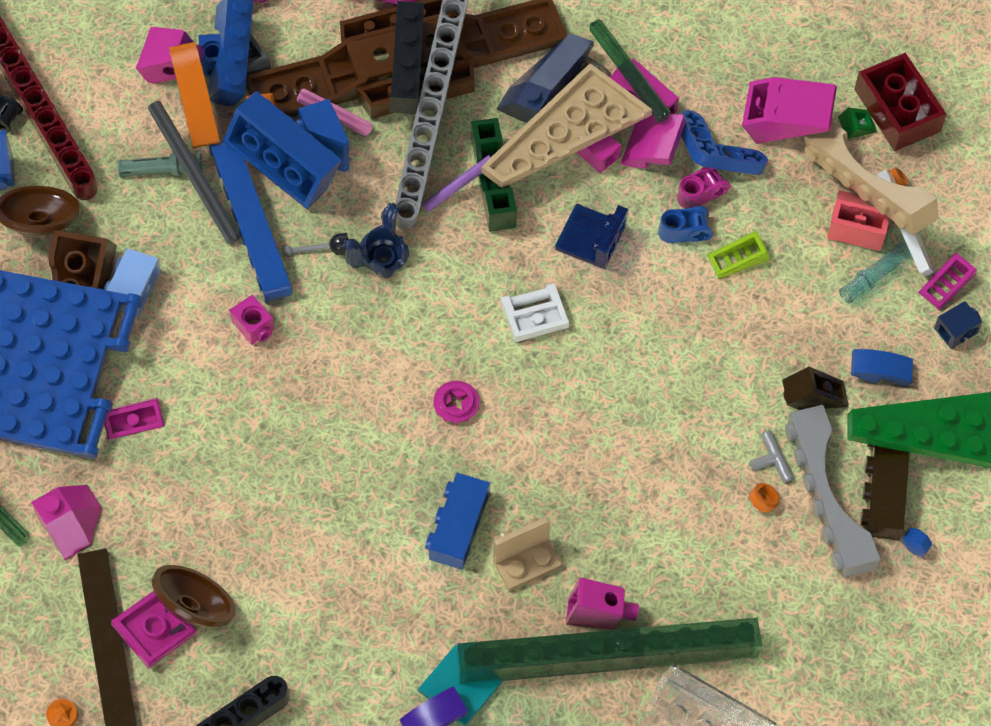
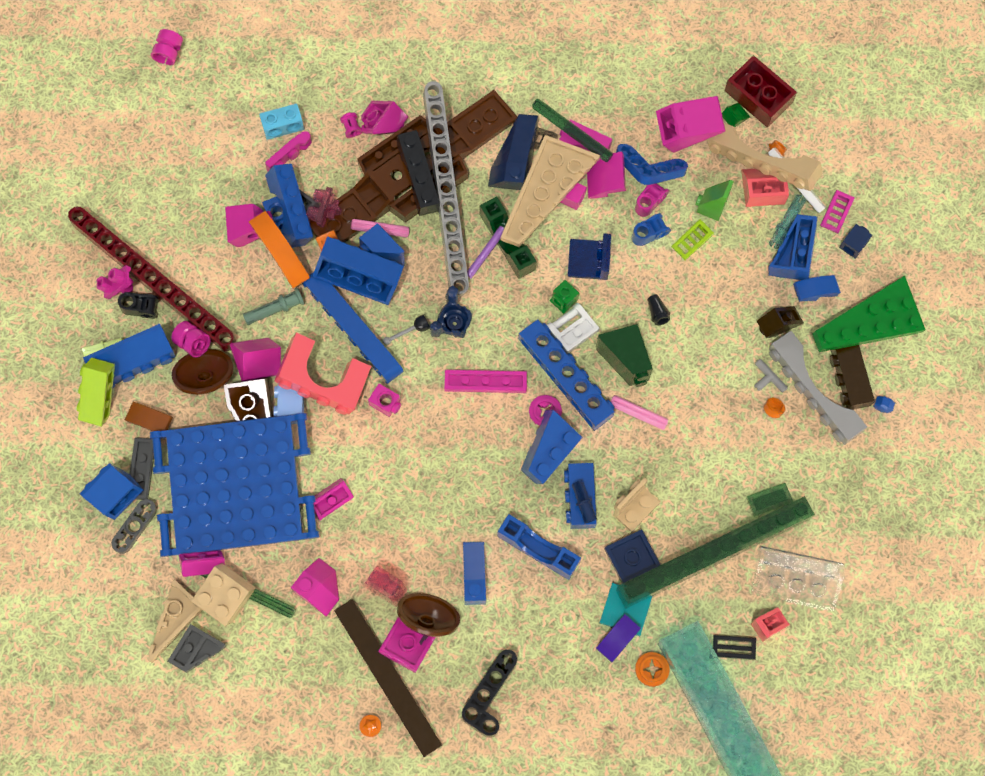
camera: 20 degrees left, 10 degrees up
(39, 167) = (190, 339): none -> dark pink wheel
(112, 217) = (256, 358): none -> dark pink slope
(153, 539) = (385, 585): none -> clear pink torso
(193, 172) = (300, 306): dark grey axle -> none
(196, 295) = (294, 376): none -> coral arch
(275, 66) = (320, 214): none -> clear pink hips
(276, 572) = (474, 573): none -> blue slope
(389, 583) = (550, 555): none -> blue arch
(393, 340) = (485, 381): none -> dark pink plate
(442, 444) = (550, 447): none -> blue wedge
(455, 524) = (584, 502): none -> dark blue axle
(495, 615) = (632, 556): none -> dark blue plate
(519, 430) = (540, 331): none -> blue brick
(538, 269) = (564, 296): none -> green window
(580, 444) = (639, 412): none -> bright pink axle
(588, 361) = (626, 354): none -> dark green slope
(599, 605) = (697, 523): dark pink torso -> none
(656, 328) = (659, 313): none -> black cone
(711, 609) = (769, 499): none -> clear green tile
(785, 213) = (714, 200): none -> bright green slope
(872, 310) = (796, 252): none -> blue wedge

